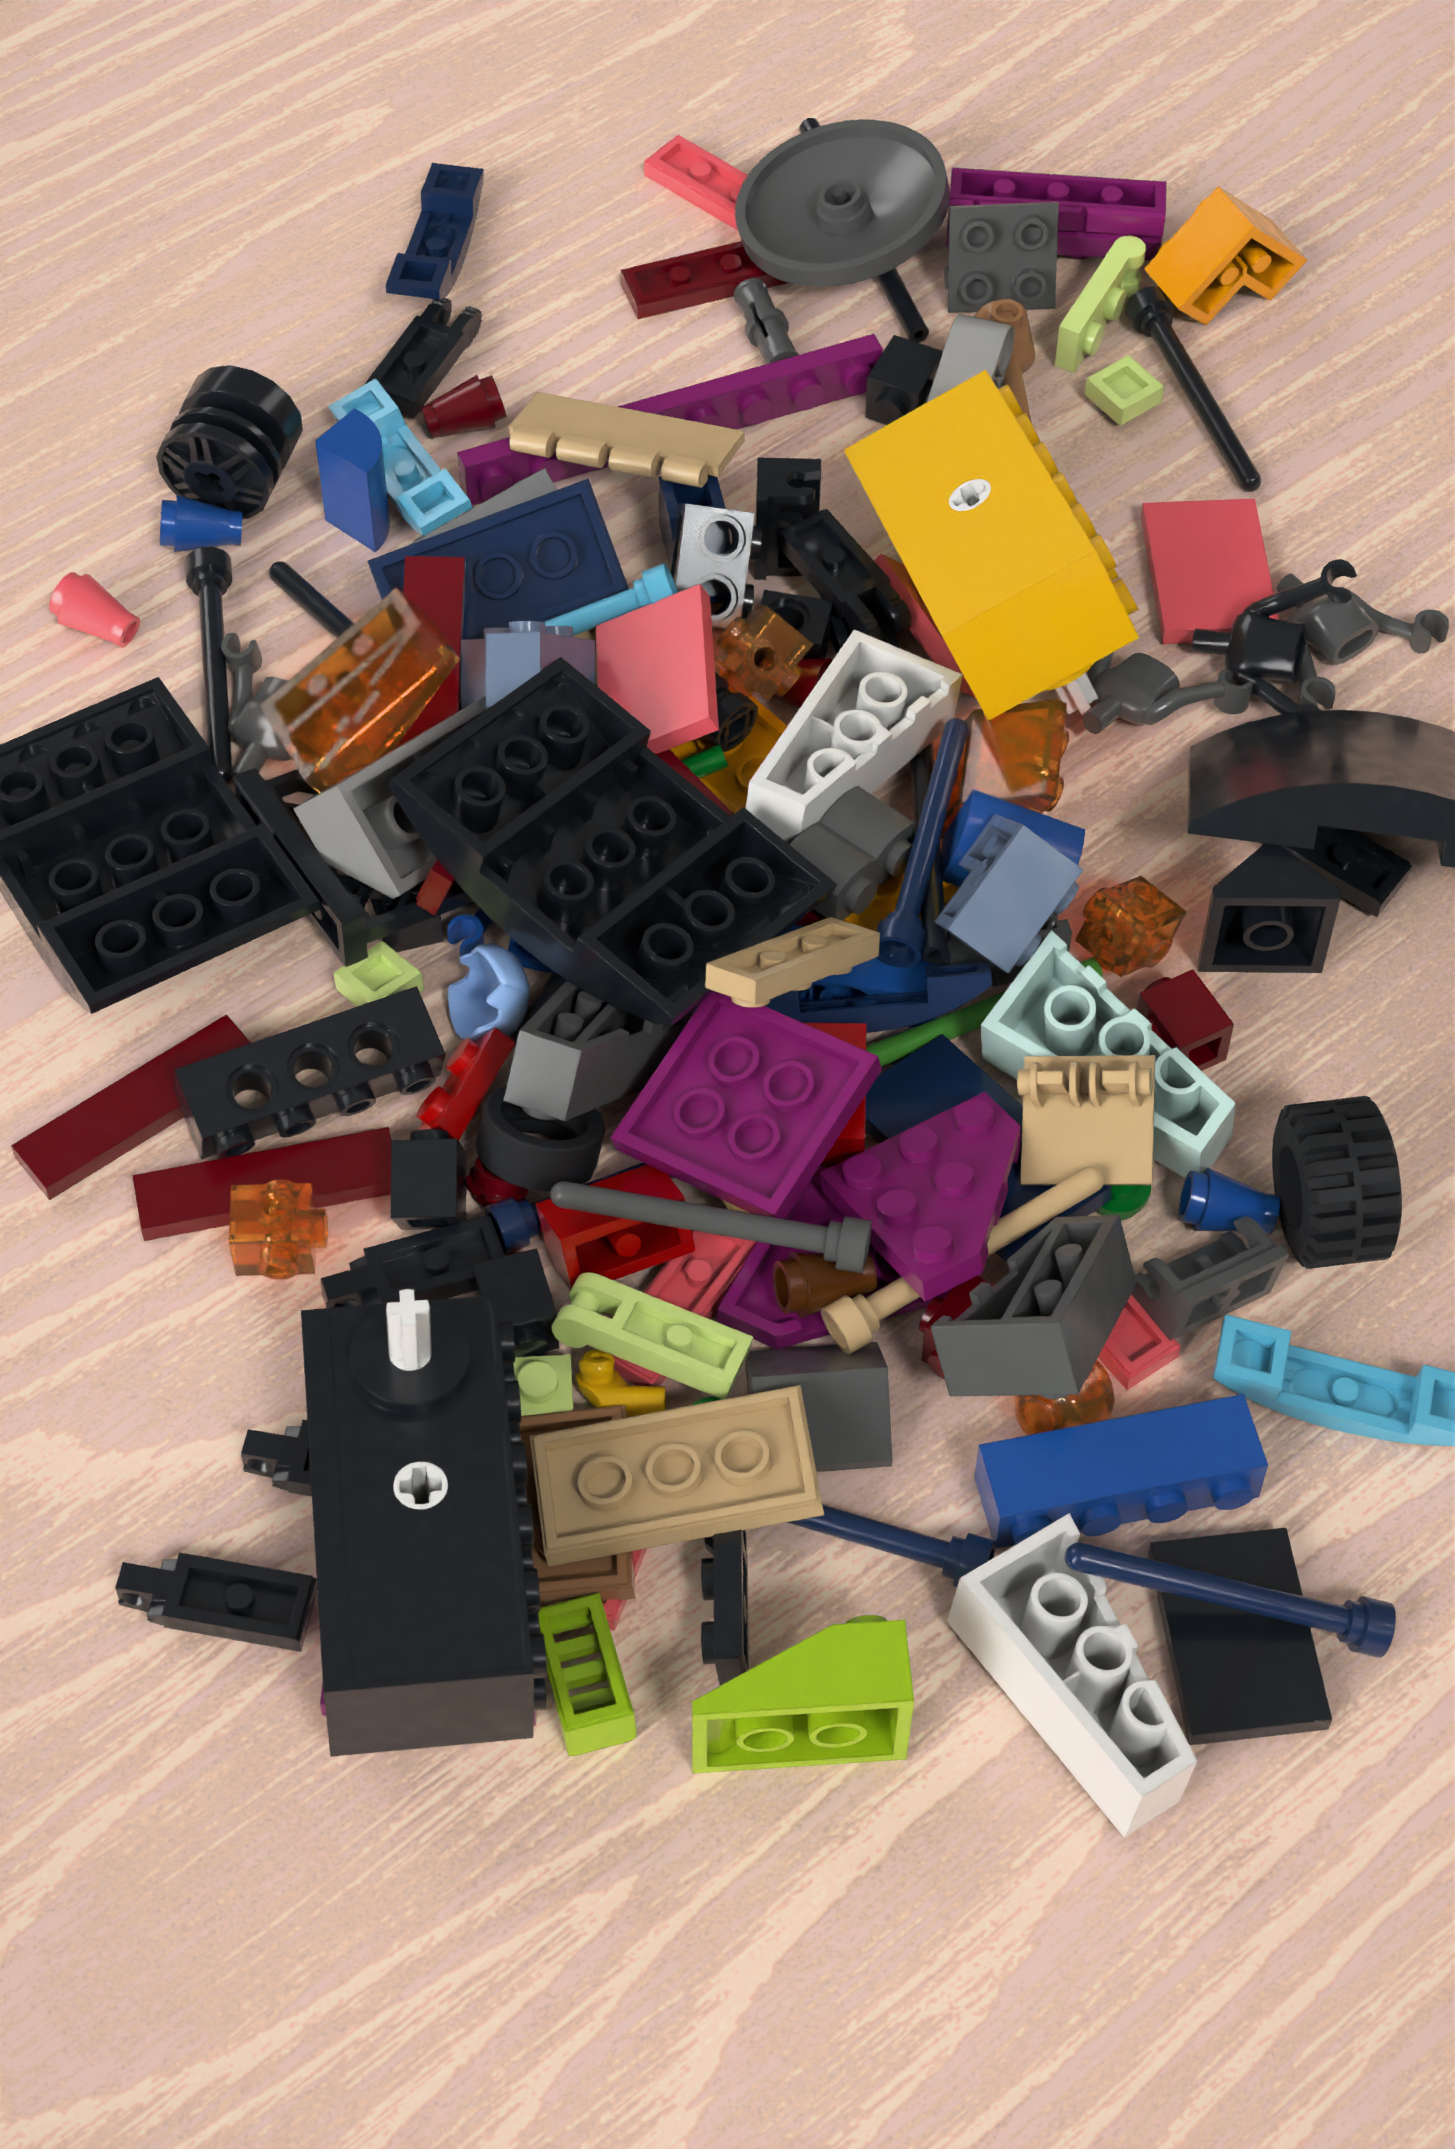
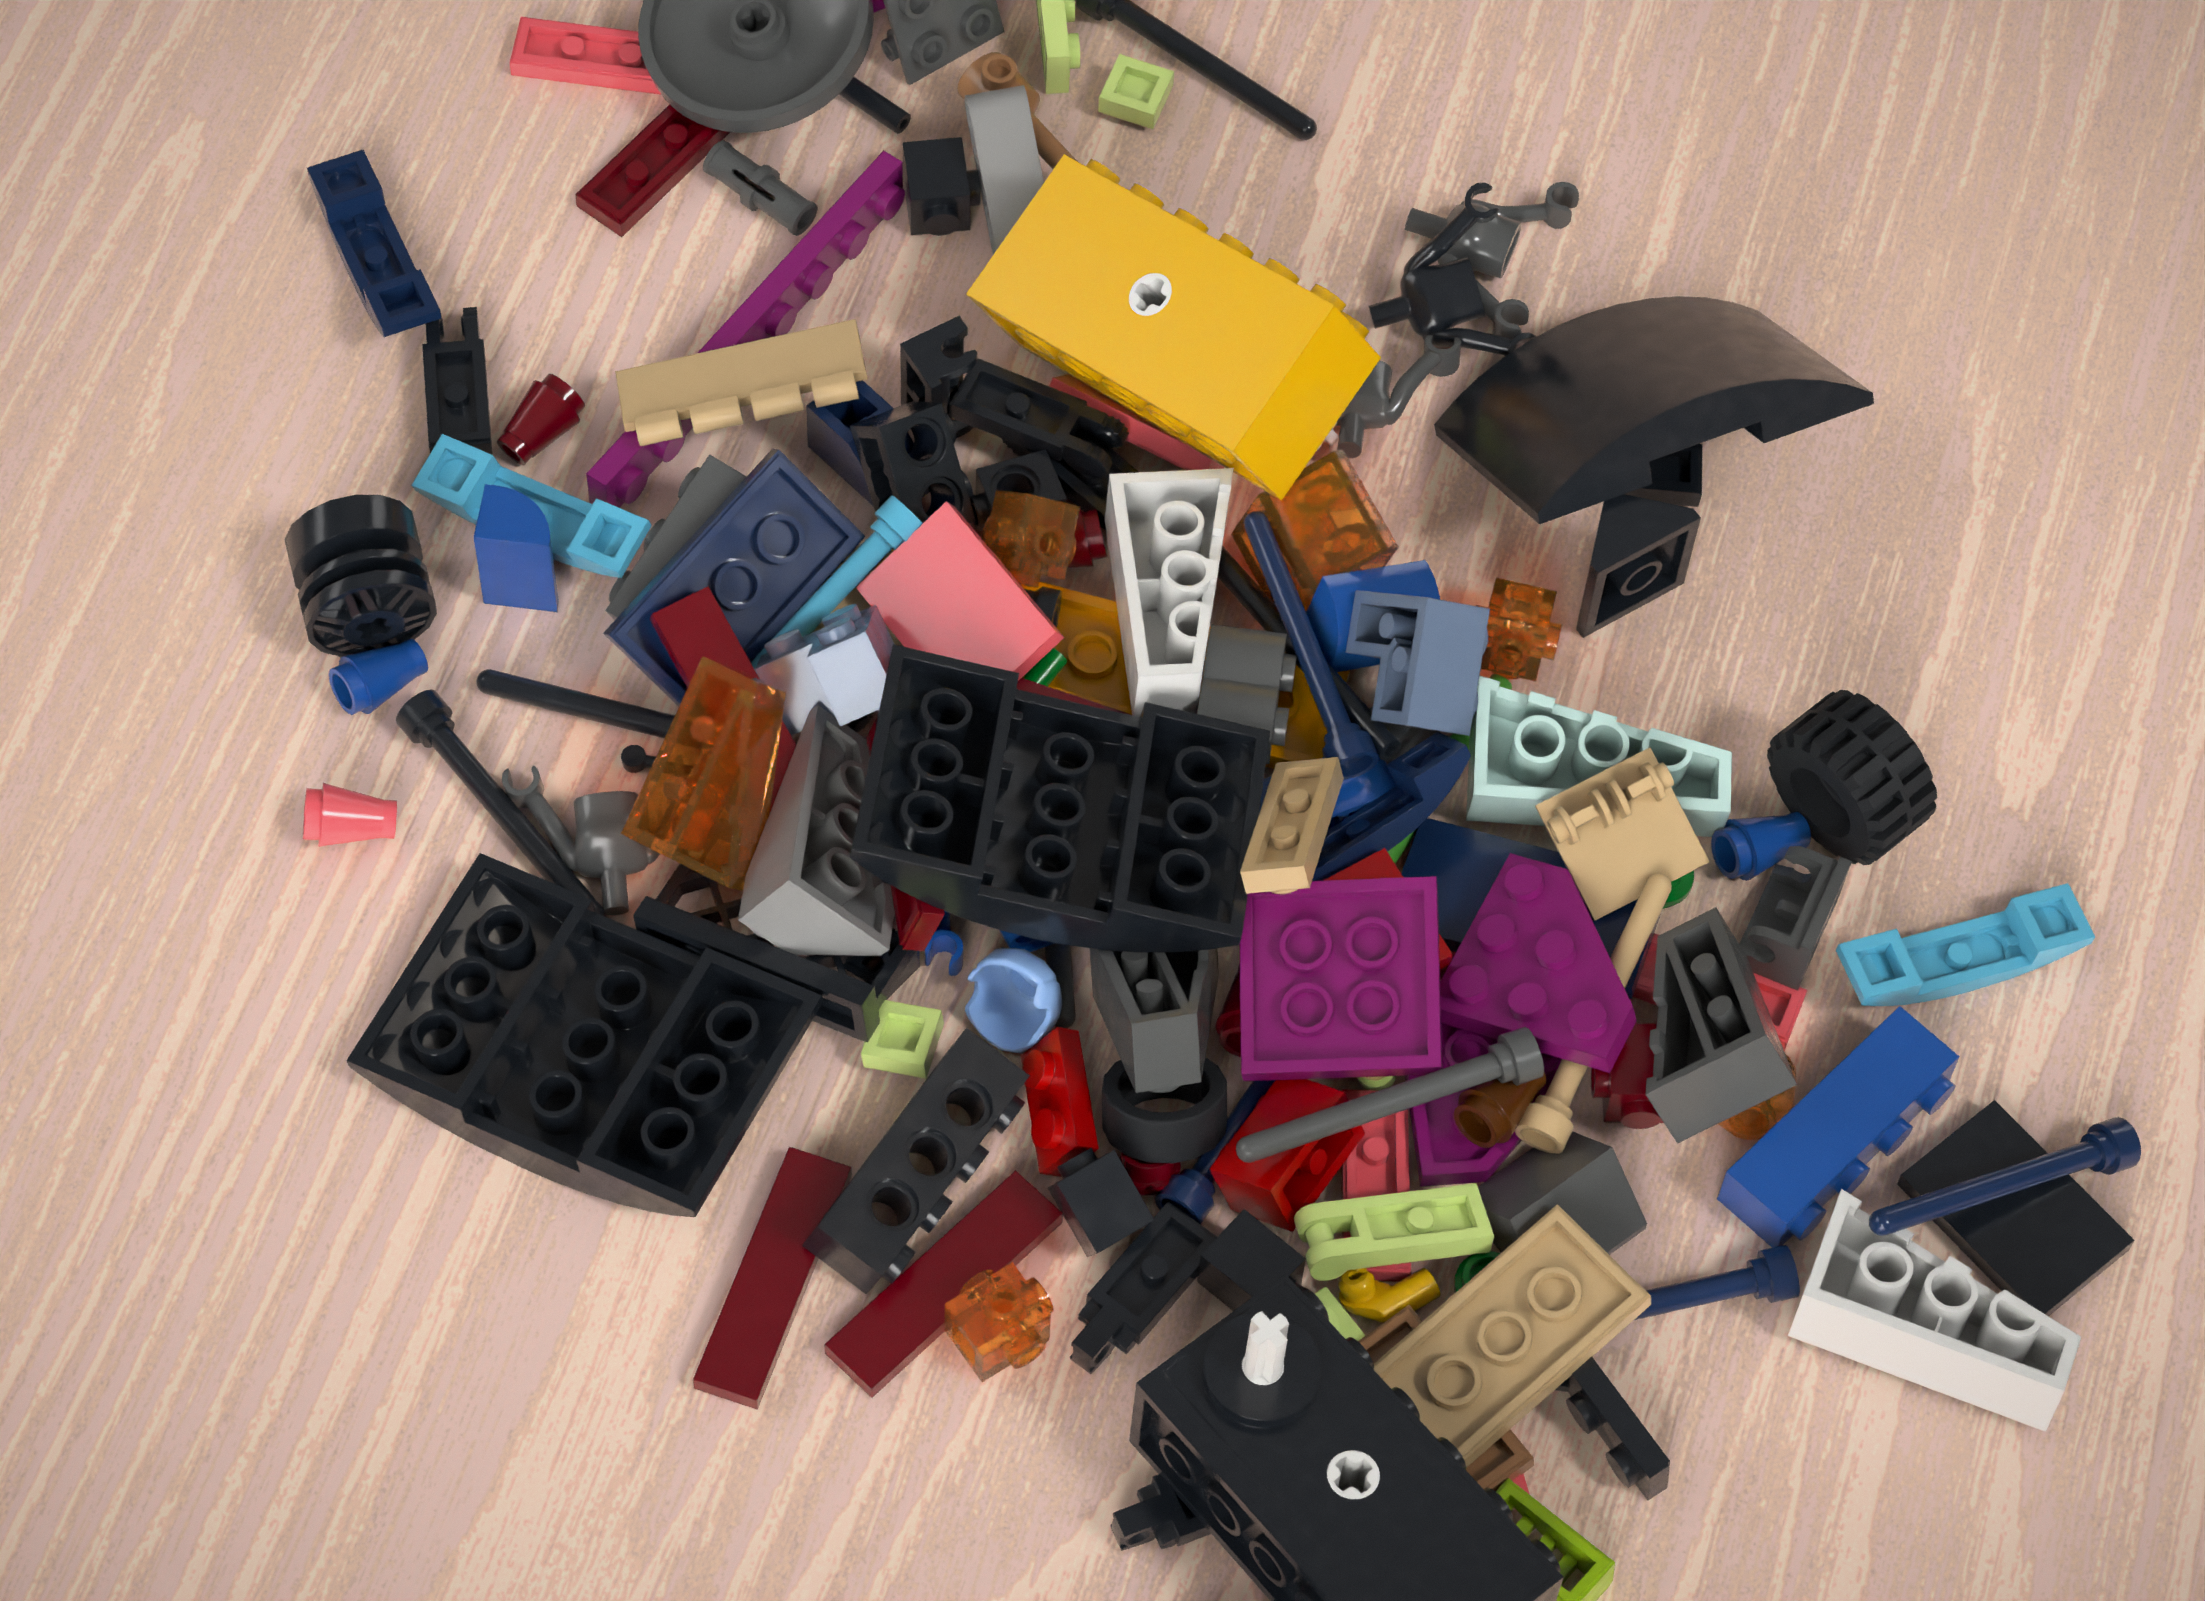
camera: 35 degrees left, 5 degrees up
(814, 1704) = (1775, 1449): lime slope -> none
(1187, 1018) = (1618, 688): dark red brick -> none
(1204, 564) = (1328, 232): coral tile -> none

